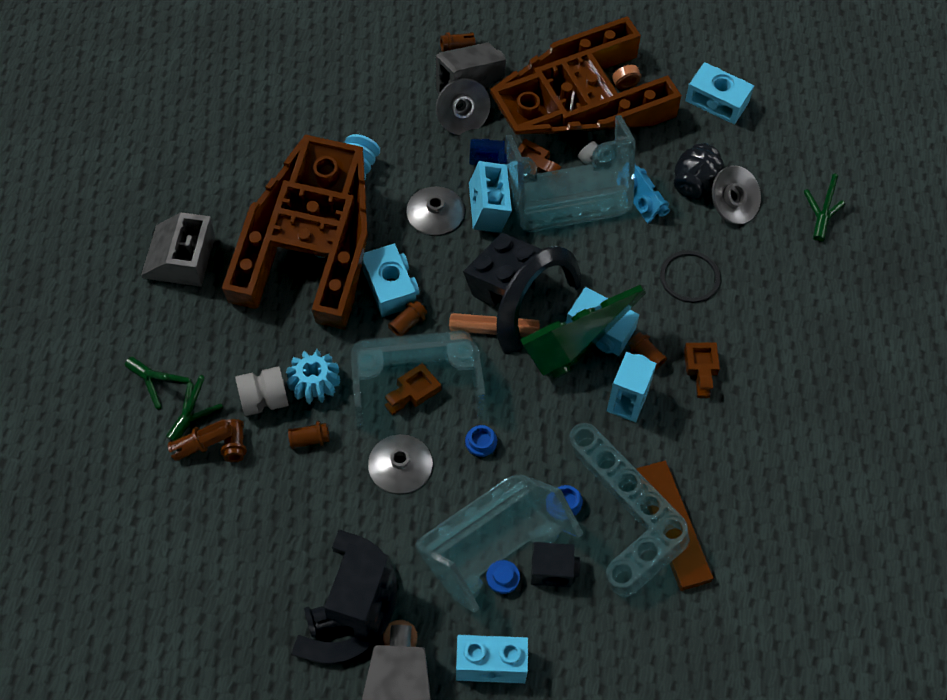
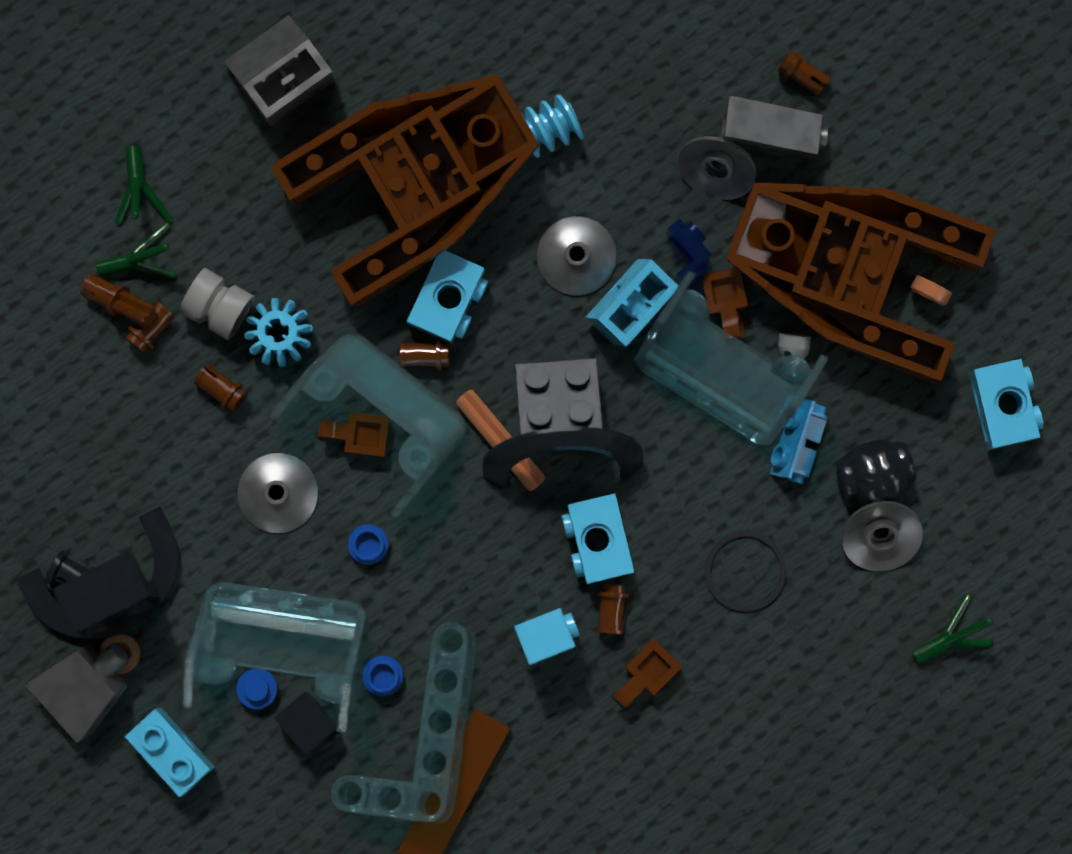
camera: 45 degrees right, 25 degrees up
(564, 344) = (534, 534): dark green wedge -> none

